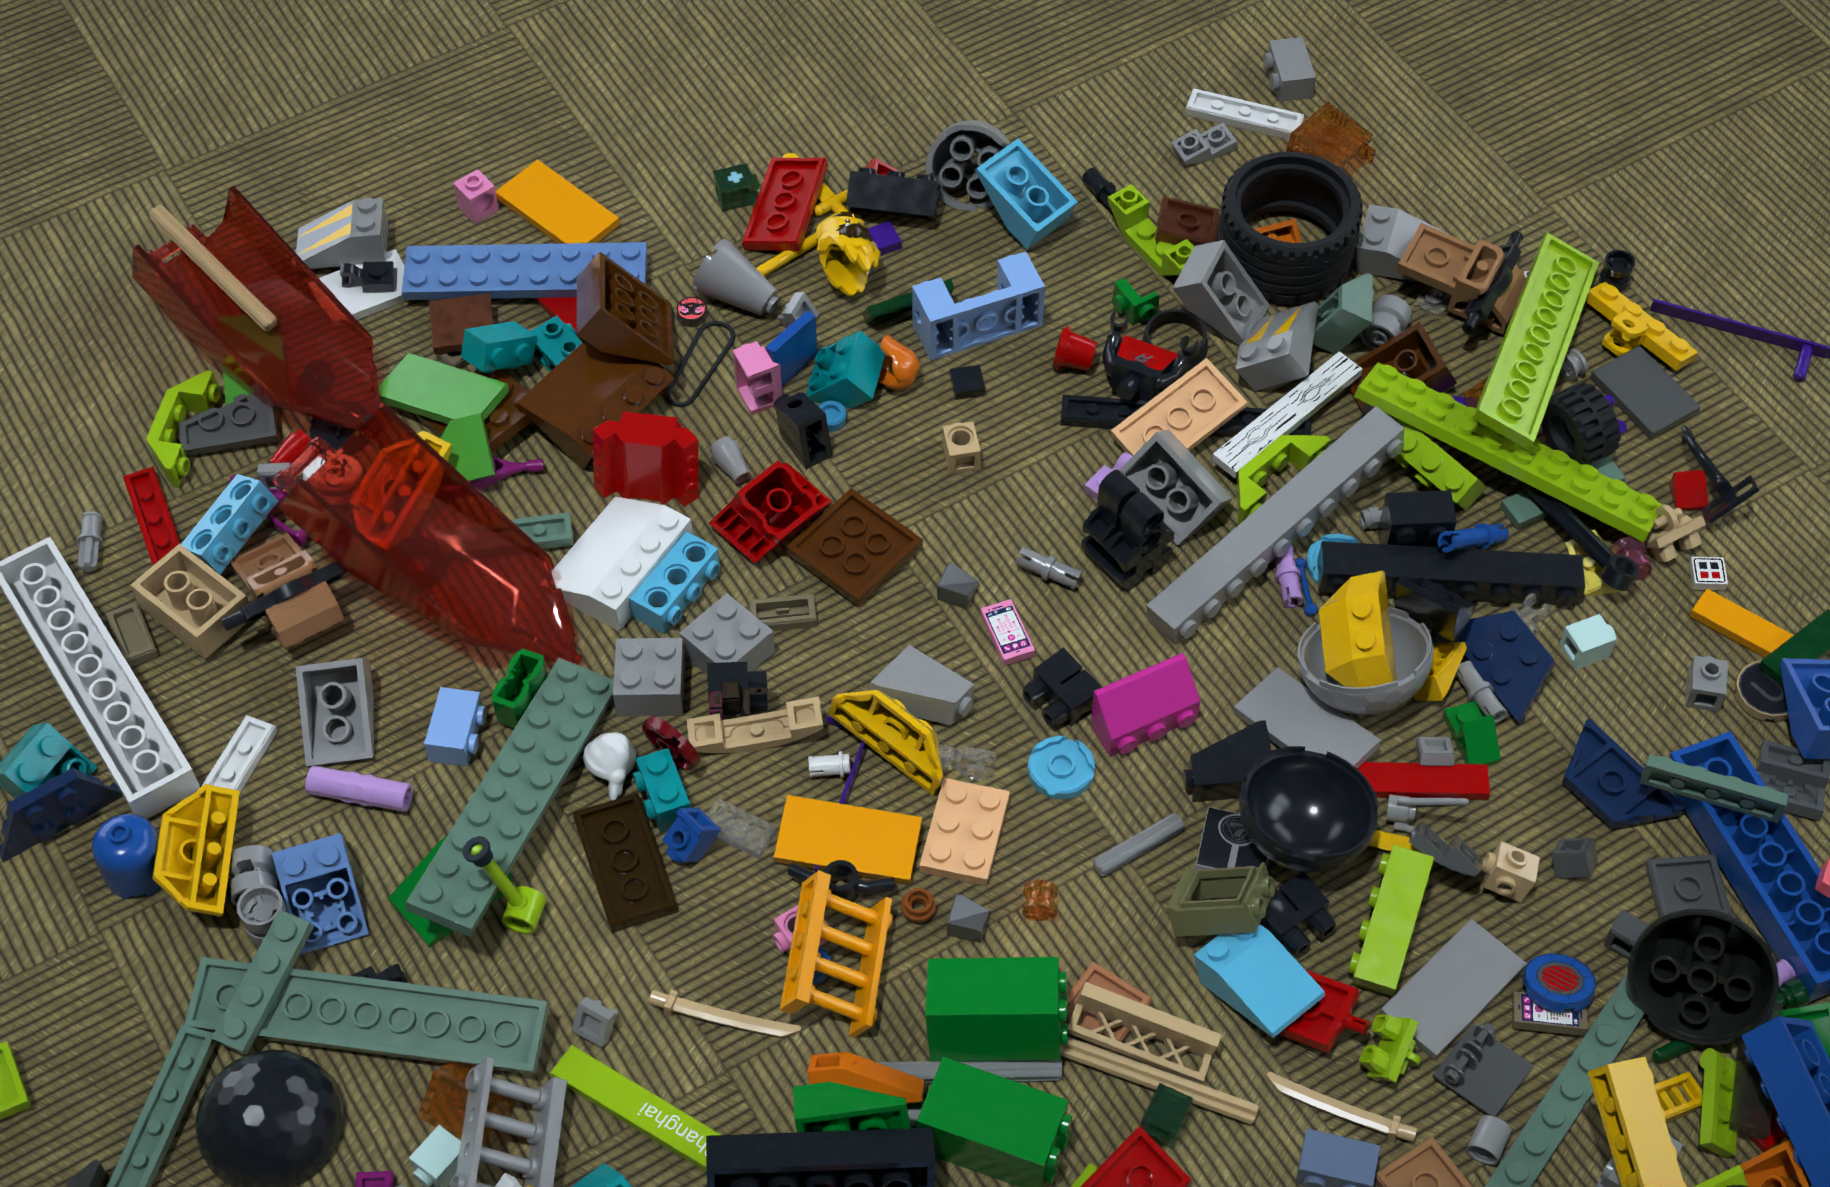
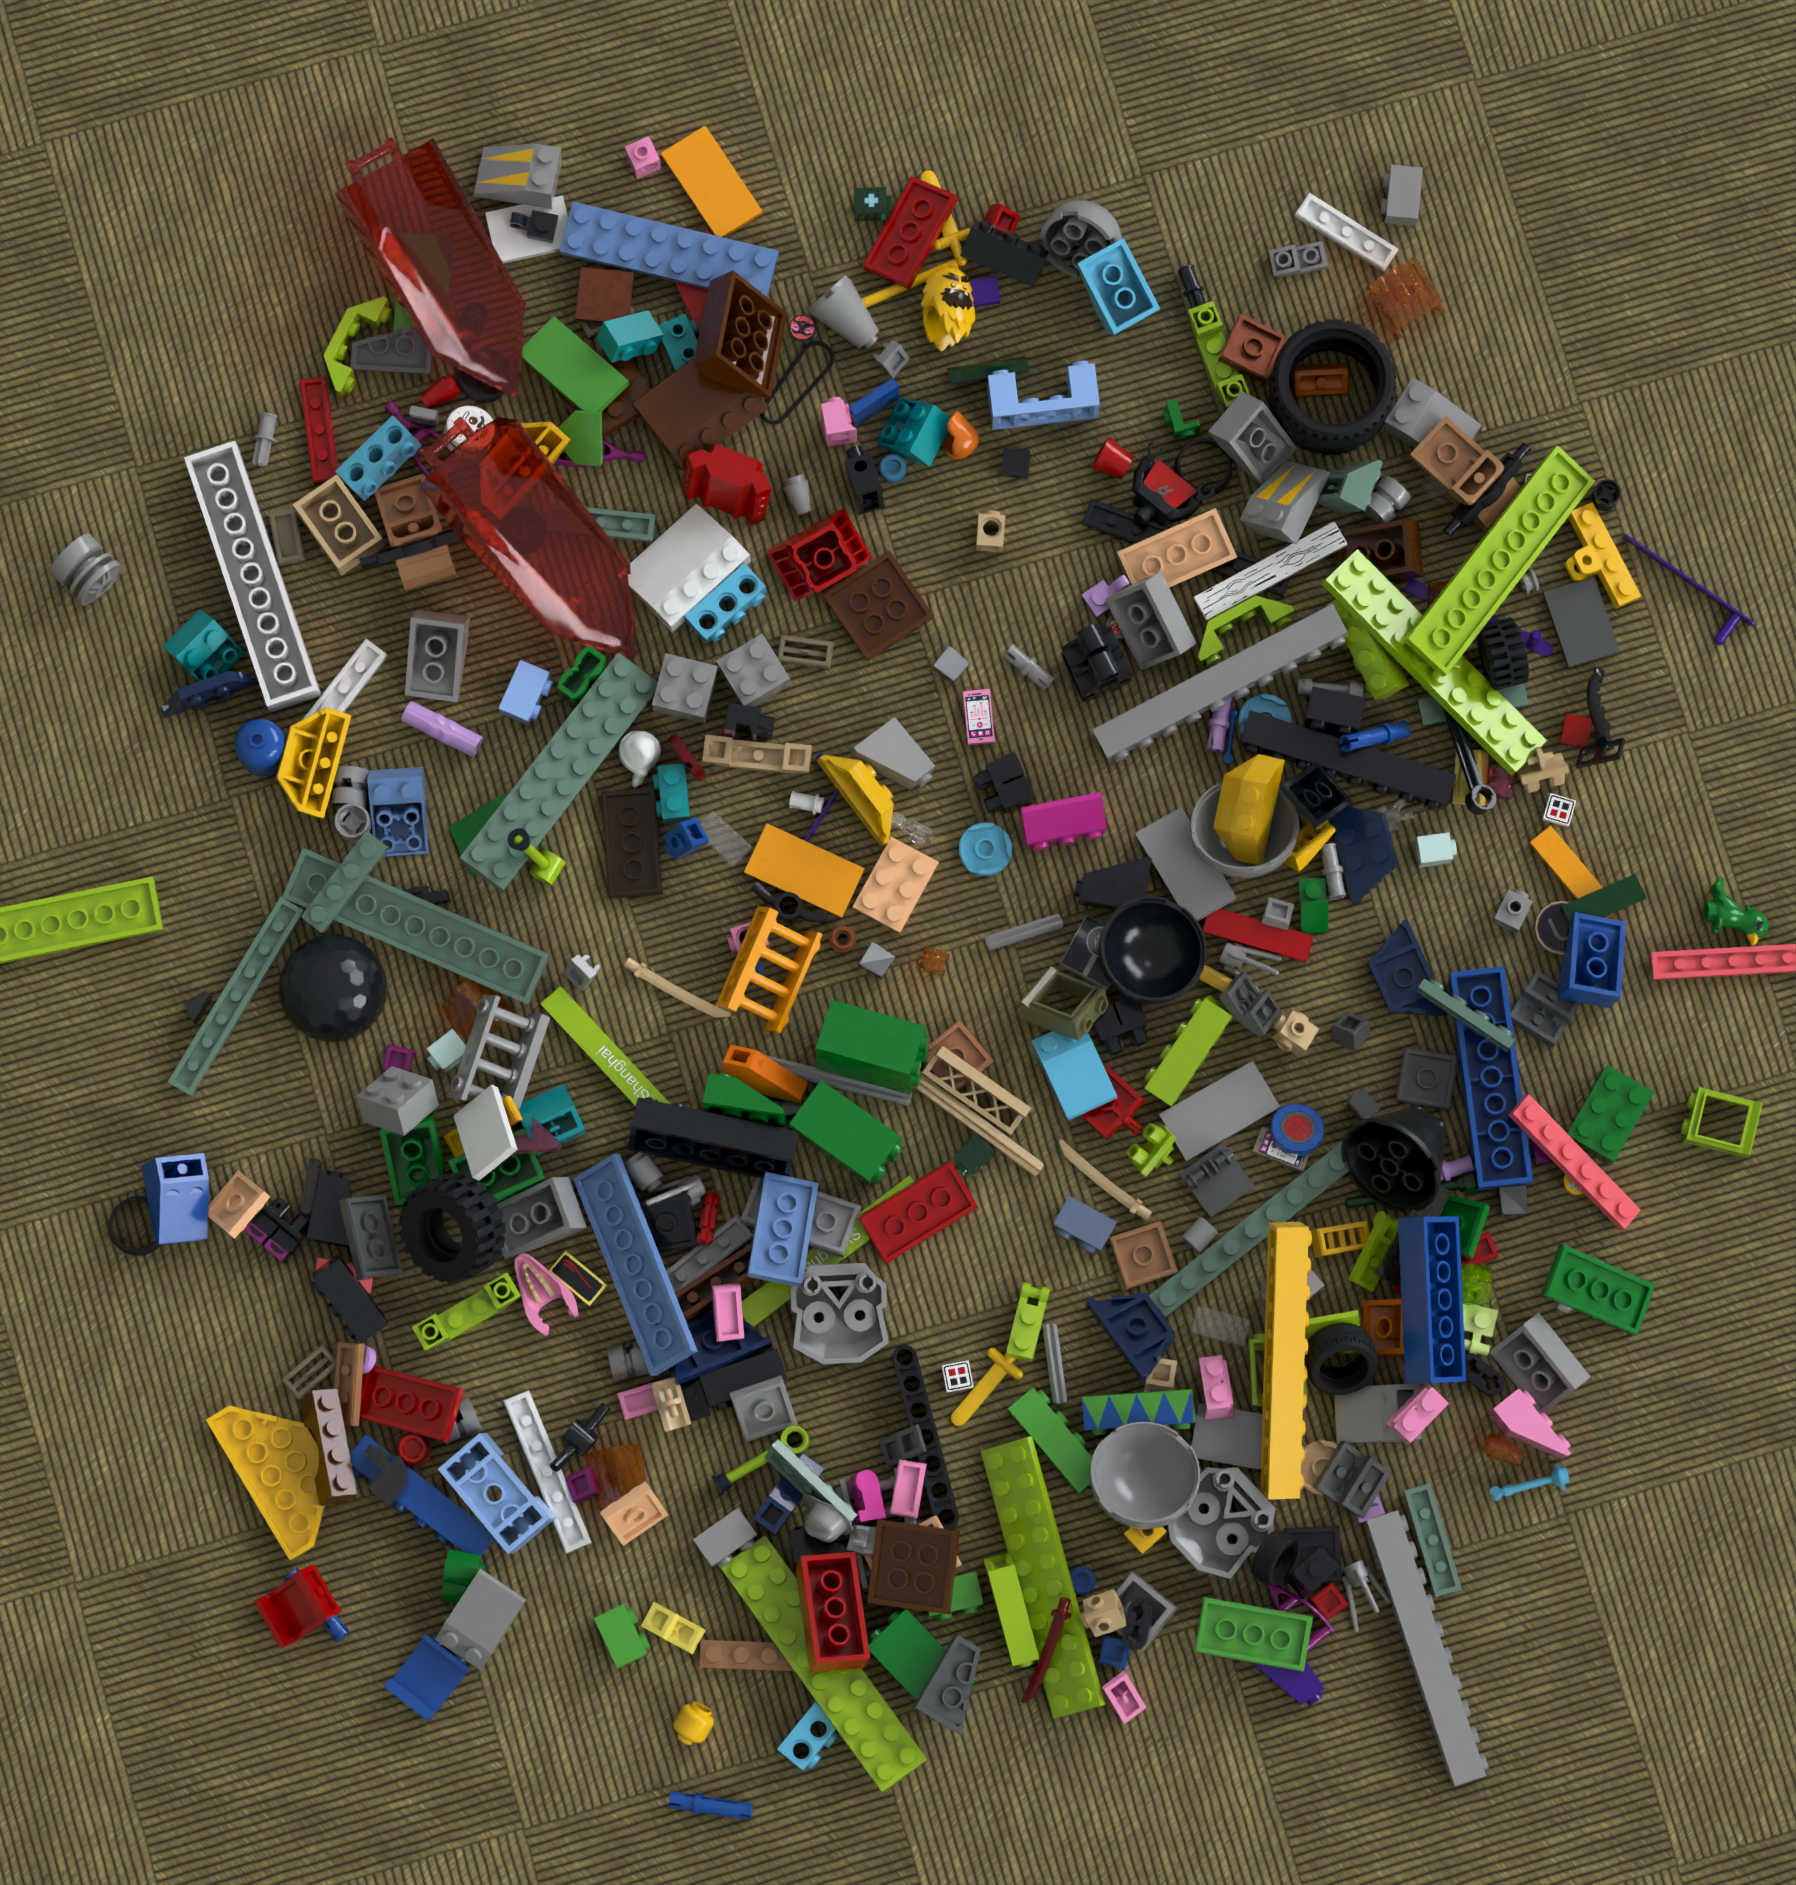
camera: 15 degrees right, 25 degrees up
(213, 267) = (403, 192): tan axle -> none

